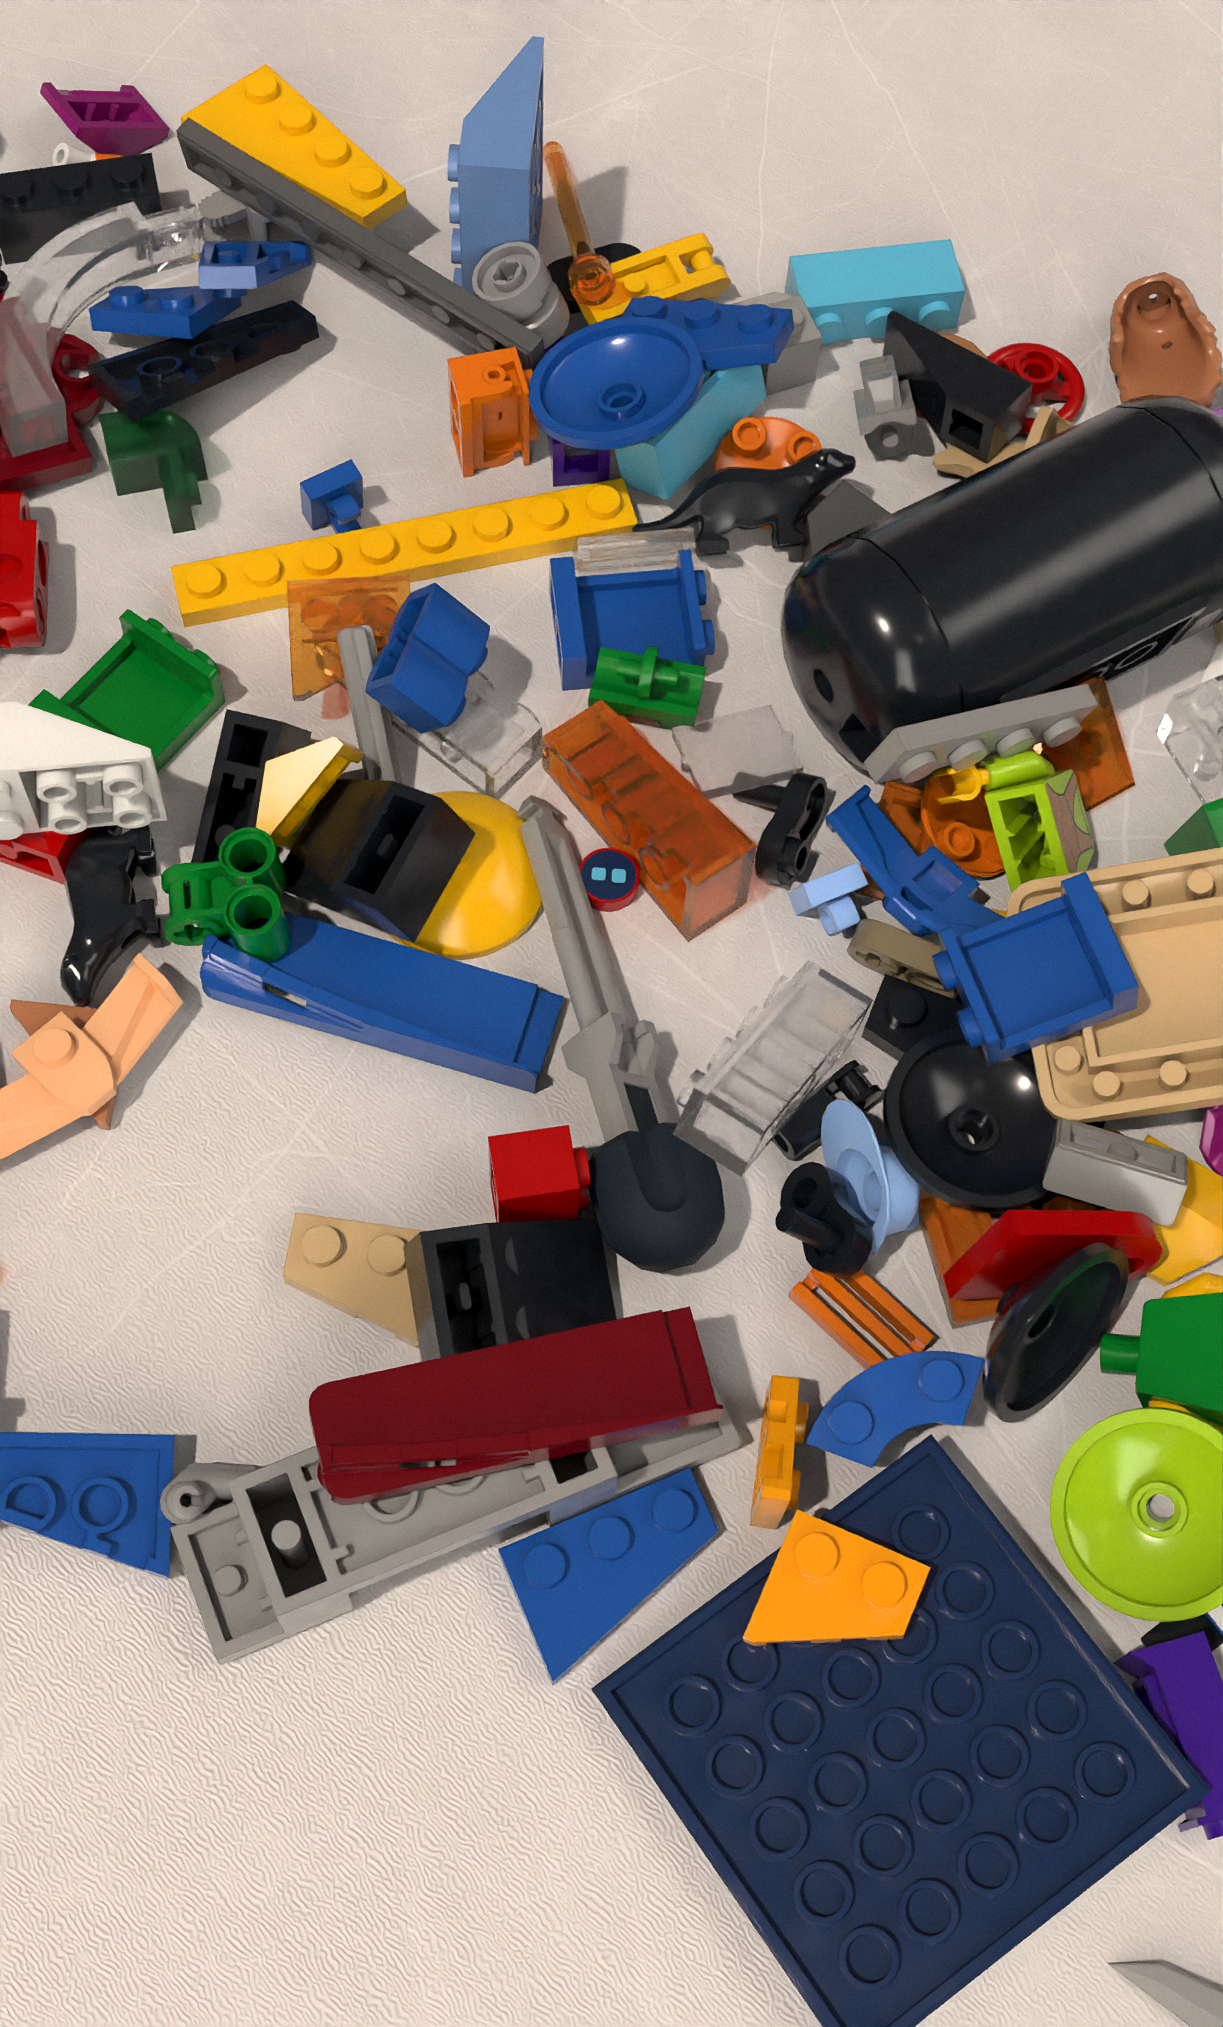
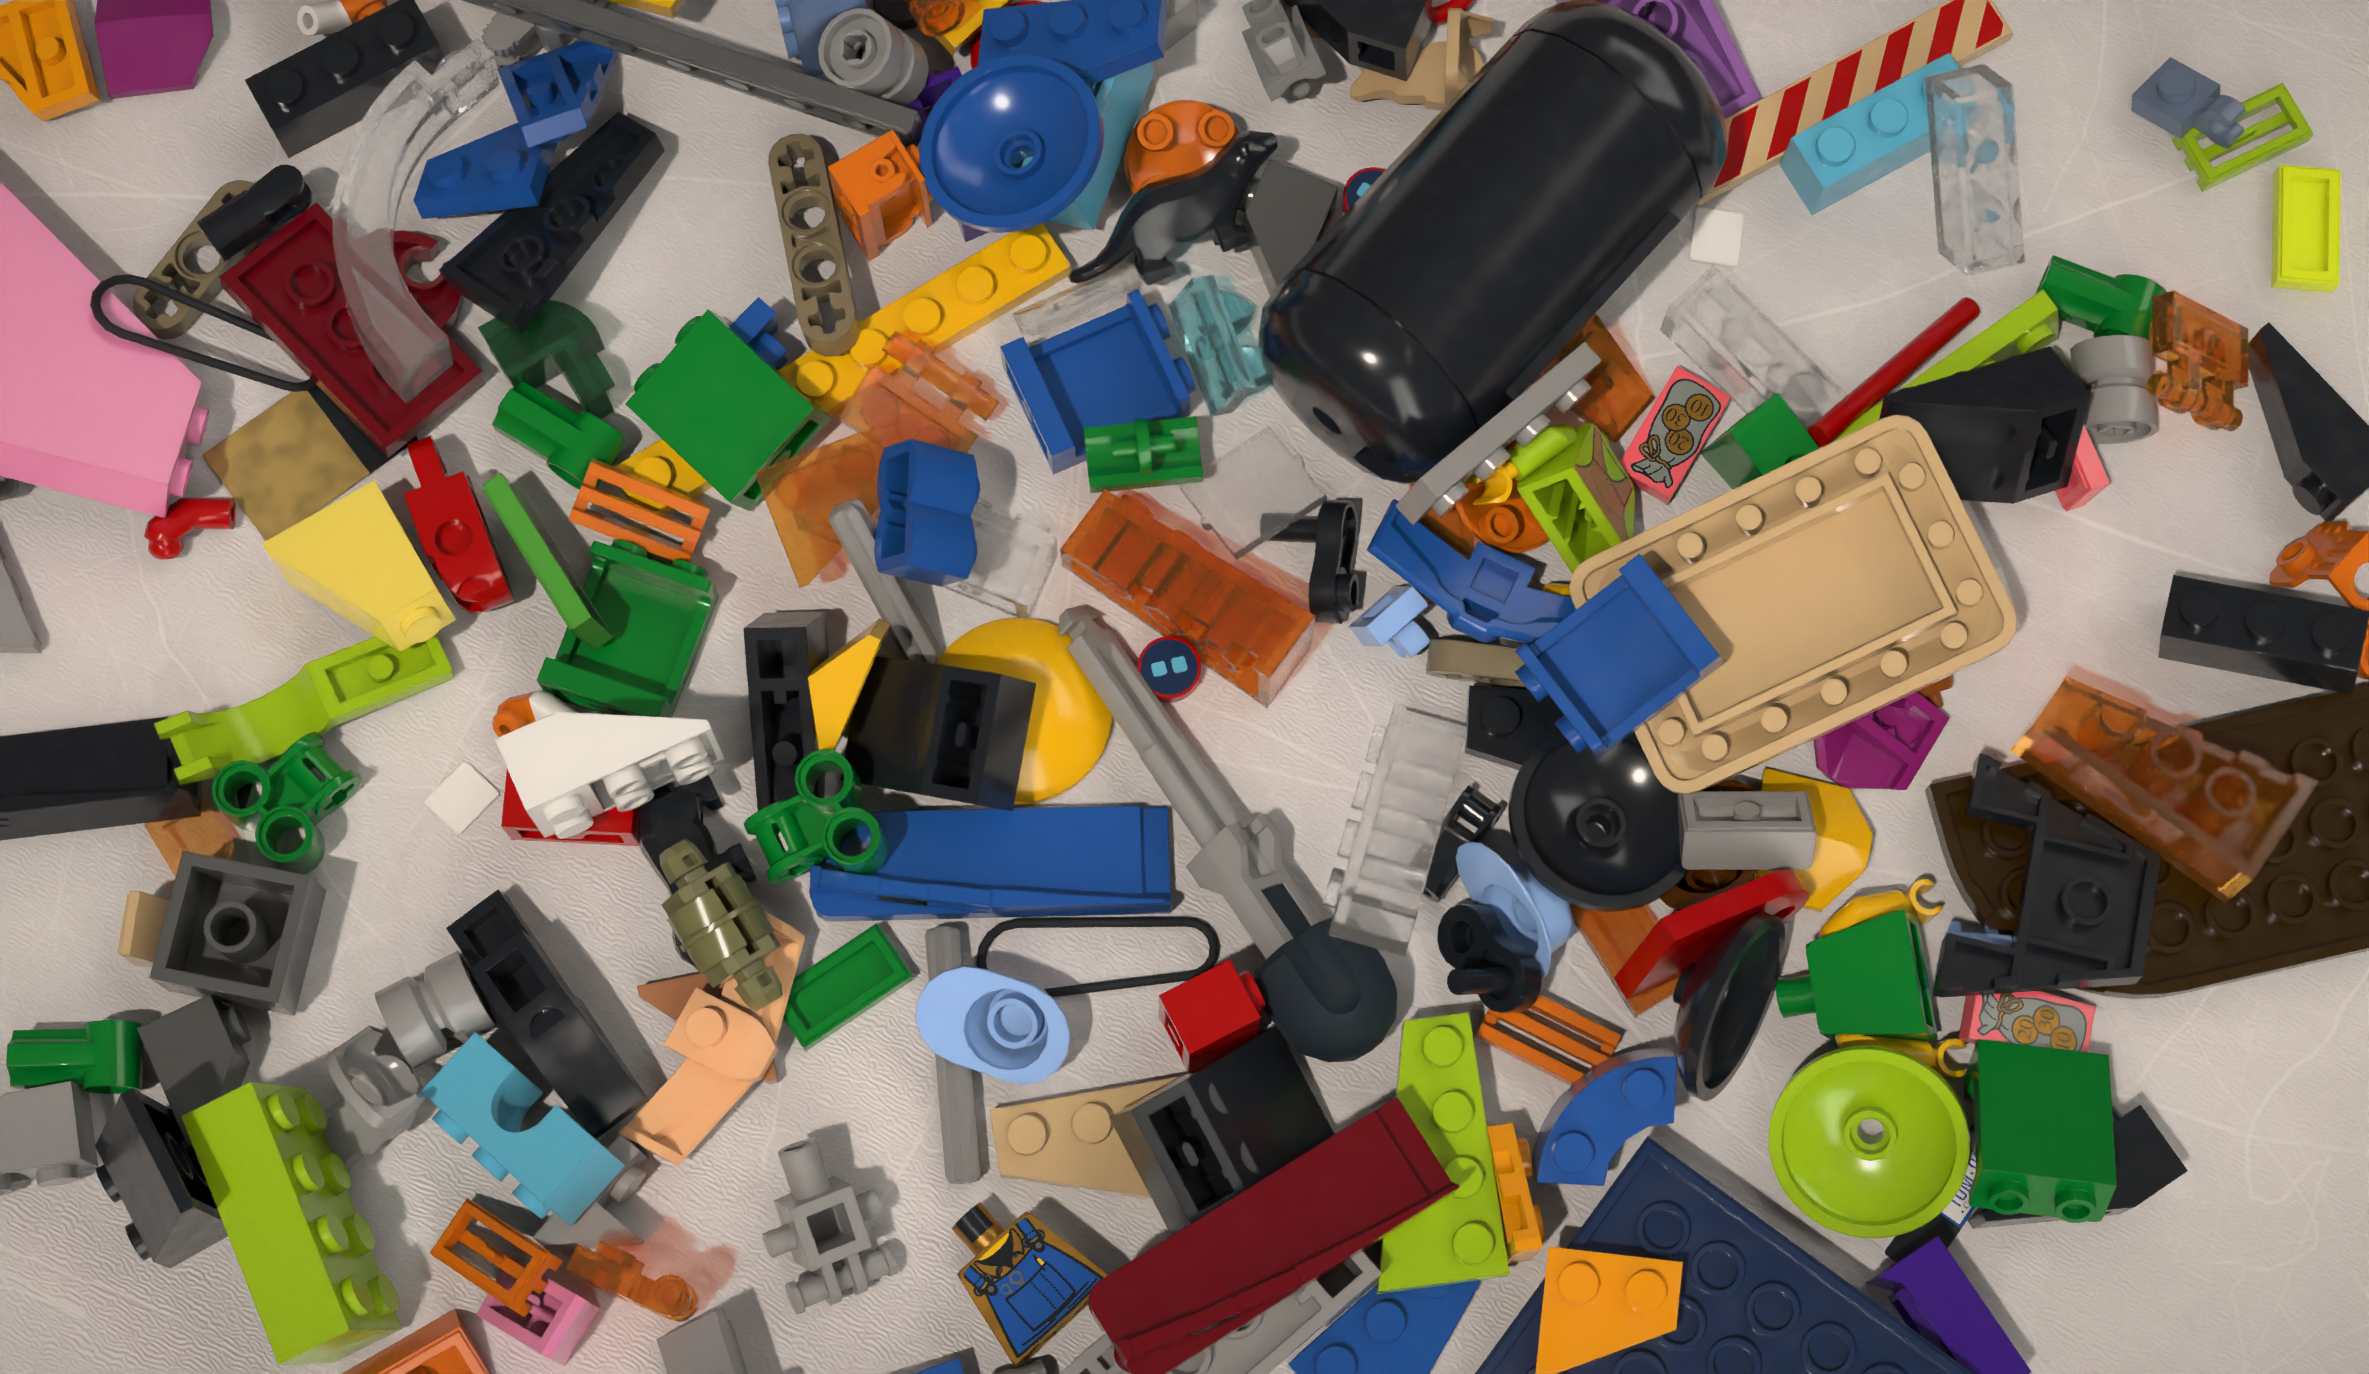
camera: 15 degrees left, 10 degrees up
(80, 617) = (546, 562): none -> bright green tile
(92, 1263) = (825, 1225): none -> light grey piece
(102, 955) = (720, 925): none -> olive piece
(140, 572) = (648, 489): none -> orange tile
(143, 536) = (557, 433): none -> green piece
(202, 1062) = (844, 986): none -> green tile
(261, 1380) = (1023, 1279): none -> torso
(280, 1155) = (954, 1080): none -> light grey axle
(282, 531) = (725, 408): none -> green panel
(325, 1129) = (993, 1024): none -> light blue piece
(413, 440) = (812, 244): none -> dark tan beam
(431, 565) = (904, 414): none -> clear orange plate
(440, 1073) = (1109, 922): none -> black piece
(712, 1468) = (1443, 1096): none -> lime wing
(742, 611) = (1209, 330): none -> clear light blue tile
(1144, 816) = (1673, 434): none -> tile

